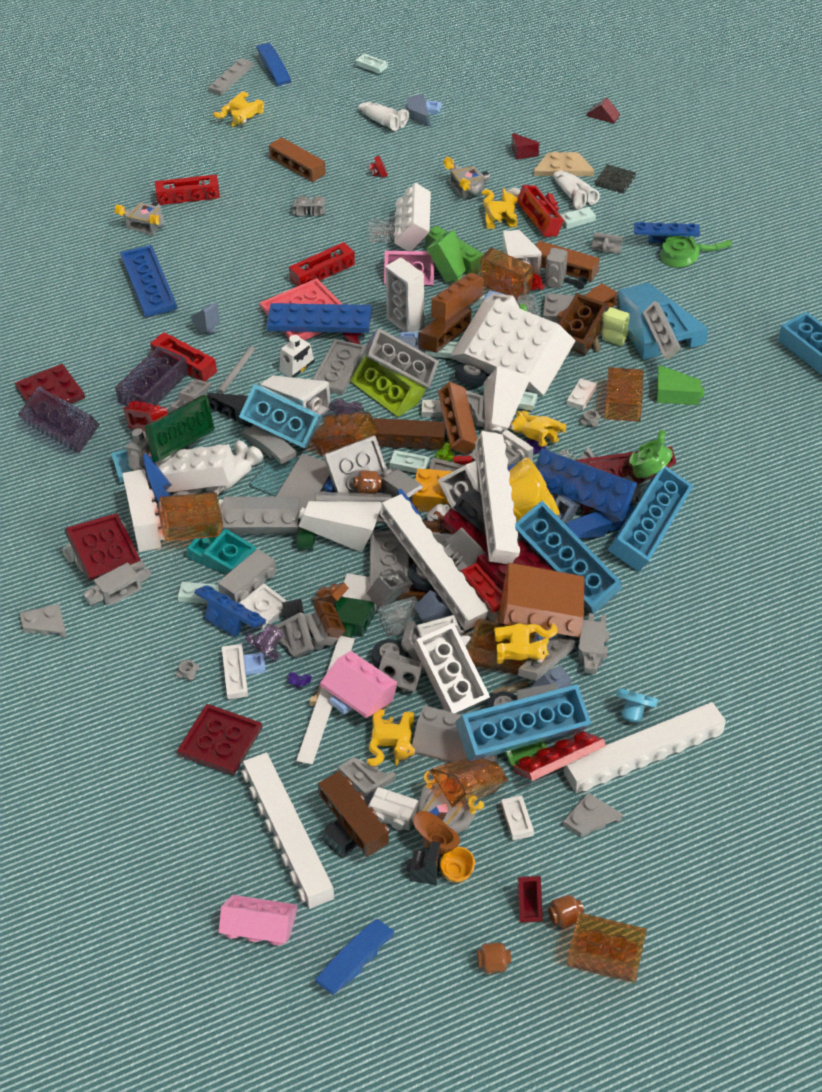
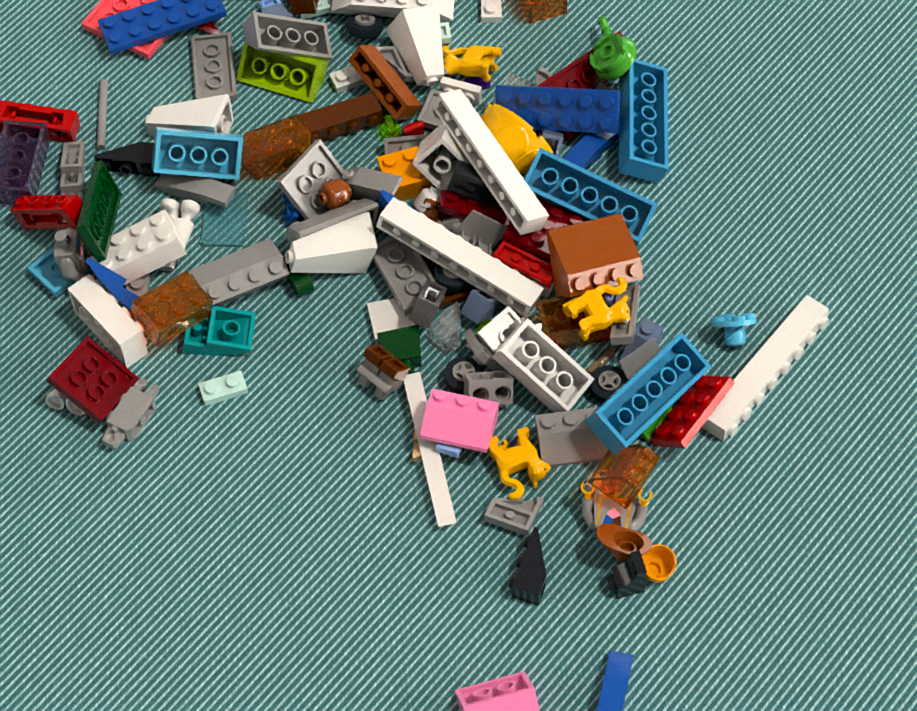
camera: 25 degrees left, 10 degrees up
(44, 621) = (75, 487): light grey wing -> none
(187, 669) = (261, 472): light grey plate -> none
(206, 319) = (35, 65): sand blue slope -> none
(220, 739) = (345, 537): dark red plate -> none
(227, 613) = (269, 398): blue bracket -> none
(234, 671) = (315, 458): white plate -> none
(248, 576) = (266, 350): light grey brick -> none
(254, 663) = (329, 441): light blue tile -> none
(266, 603) = (300, 375): white tile -> none
(267, 641) = (333, 411): clear purple plate -> none
(288, 831) = (471, 600): white brick -> none
(292, 608) = (336, 367): black plate -> none
(295, 357) = (166, 69): white torso -> none
(296, 635) = (355, 393): light grey wing -> none
(299, 680) = (383, 441): dark purple piece -> none
(305, 479) = (261, 215): light grey tile -> none
(330, 593) = (367, 334): dark orange plate -> none
(341, 407) = (258, 118): clear purple plate -> none
(353, 813) = (534, 556): reddish brown brick -> none
(394, 808) = (563, 534): white brick -> none
(408, 461) = (358, 151): light aqua plate -> none
(493, 958) = (742, 639): dark orange head -> none
(517, 817) = (685, 491): white plate -> none
(529, 898) = (743, 567): dark red slope -> none
(565, 911) = (783, 564): dark orange head -> none
(590, 418) = (516, 29): light grey plate -> none
(590, 816) = (751, 459): light grey wing -> none
(592, 643) = (658, 281): light grey hinge -> none
(607, 947) = (841, 582): clear orange brick -> none

